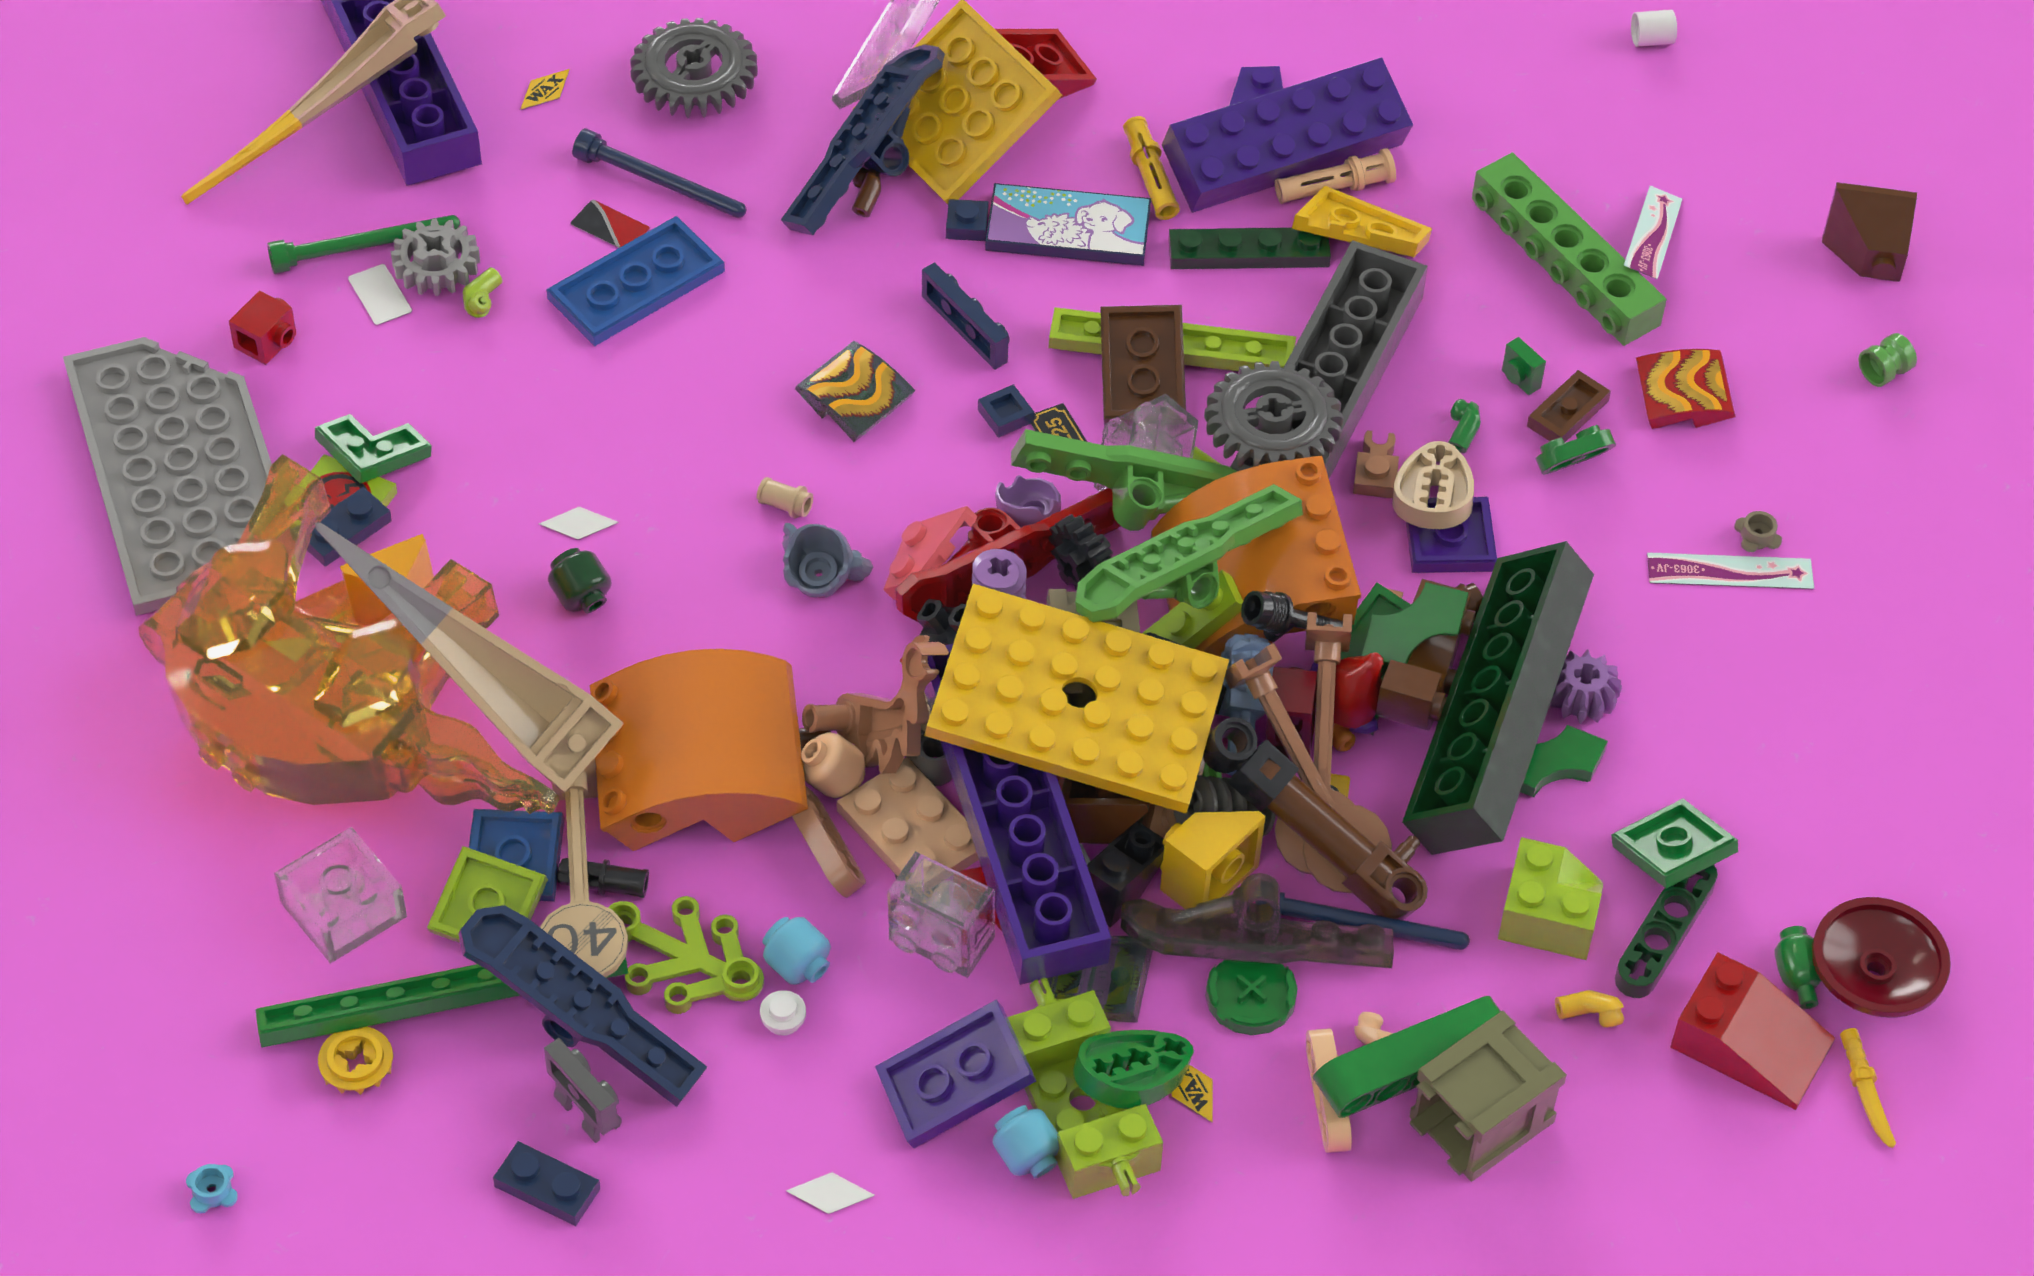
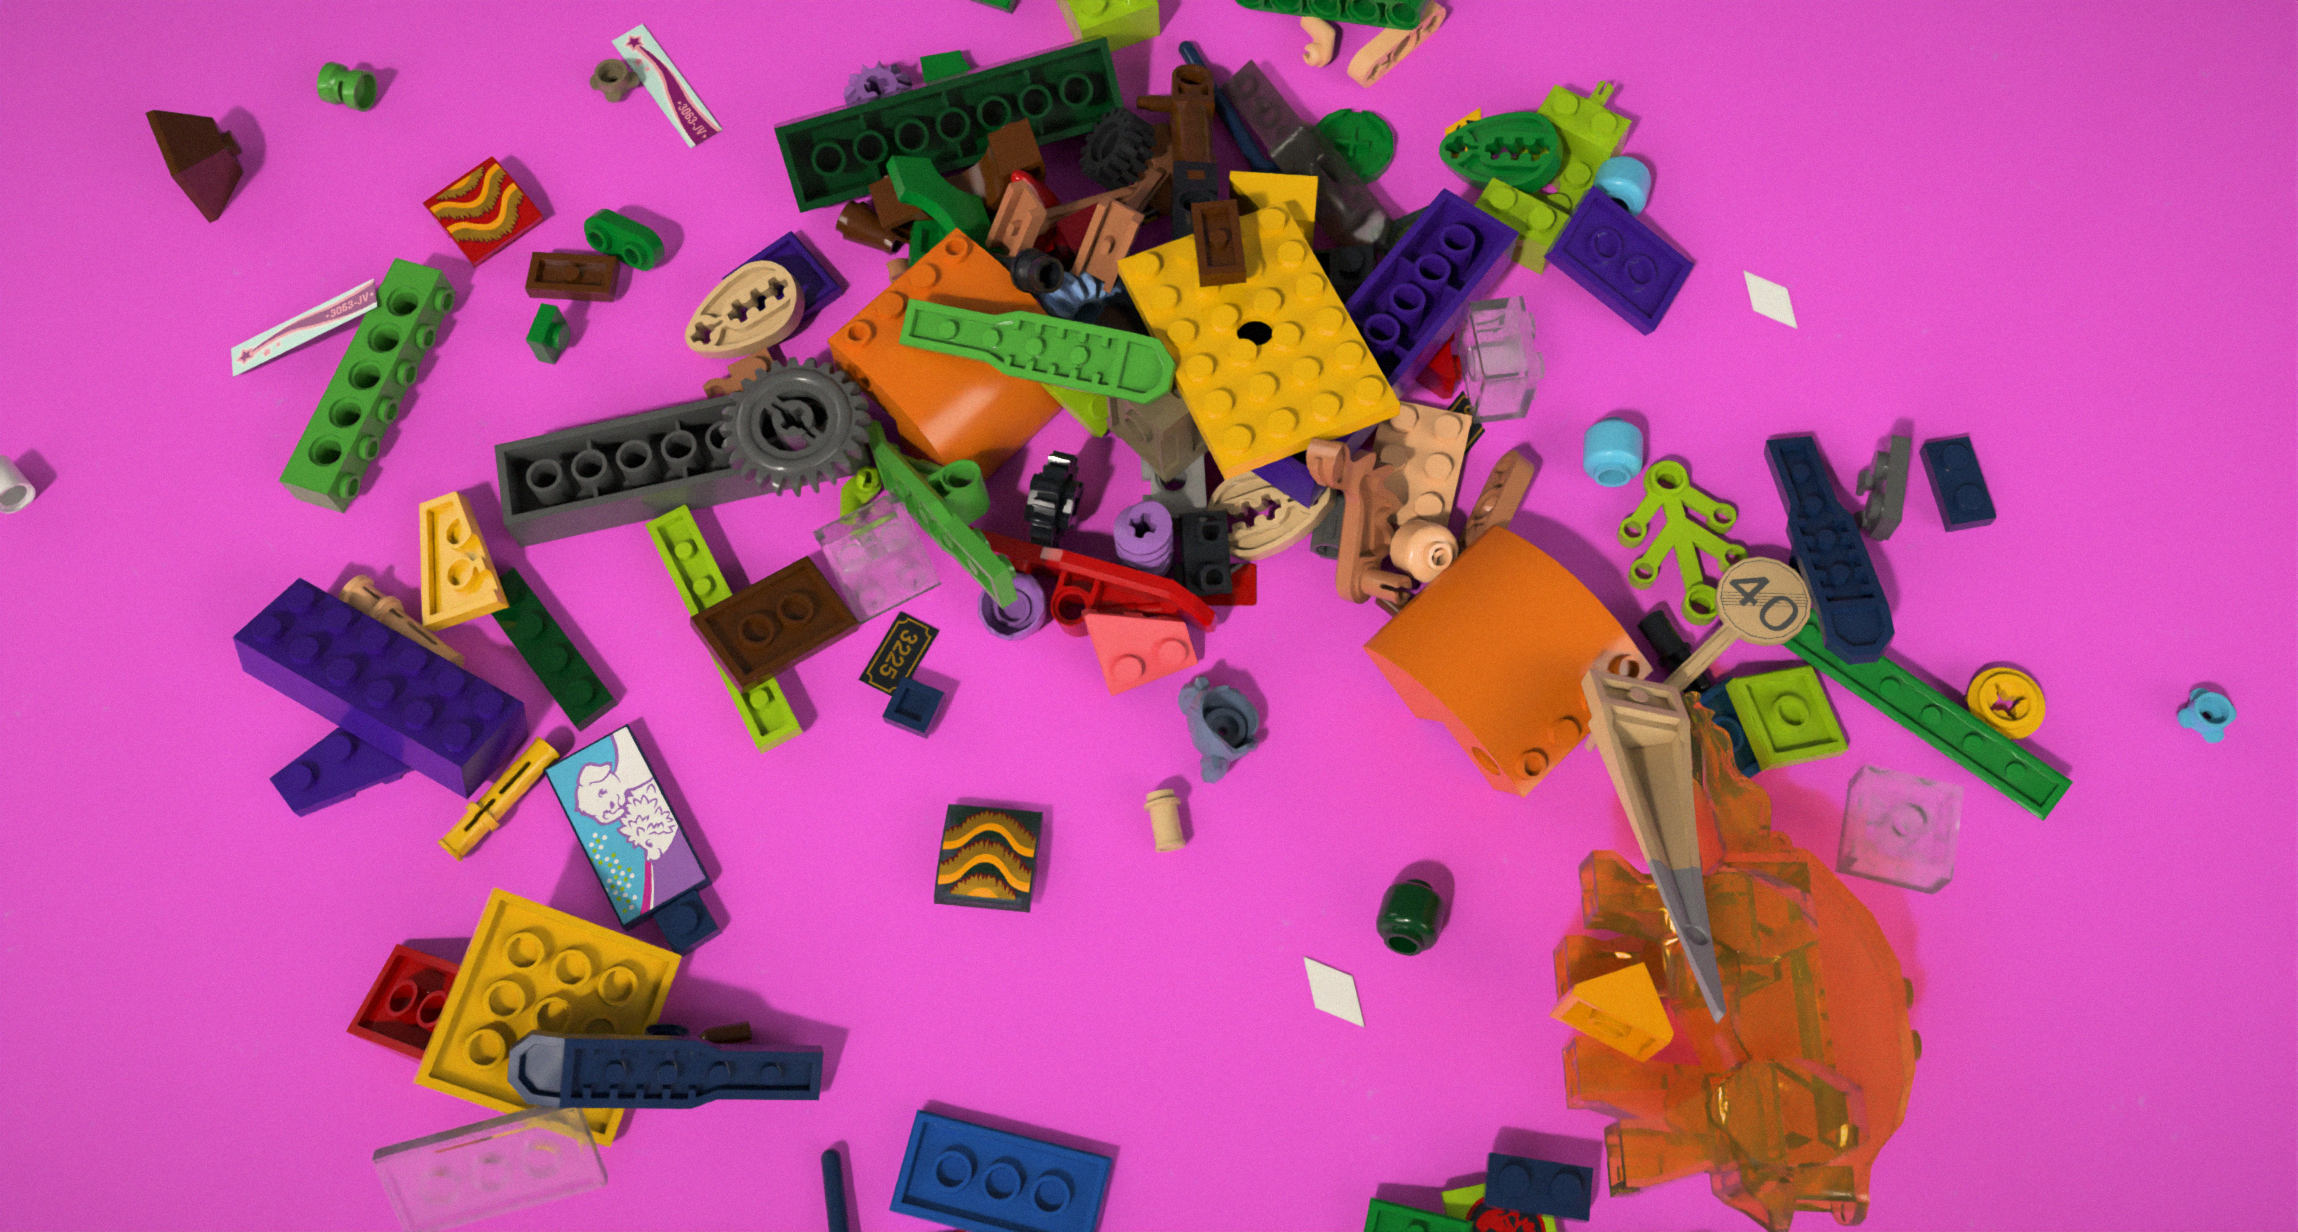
camera: 120 degrees left, 15 degrees up
(783, 1012) = (1665, 431): white plate -> none
(965, 315) = (822, 823): dark blue plate -> none
(1173, 706) = (1218, 243): none -> reddish brown plate
(1372, 787) = (1117, 149): none -> black tyre
(1469, 423) = (643, 339): green arm -> none

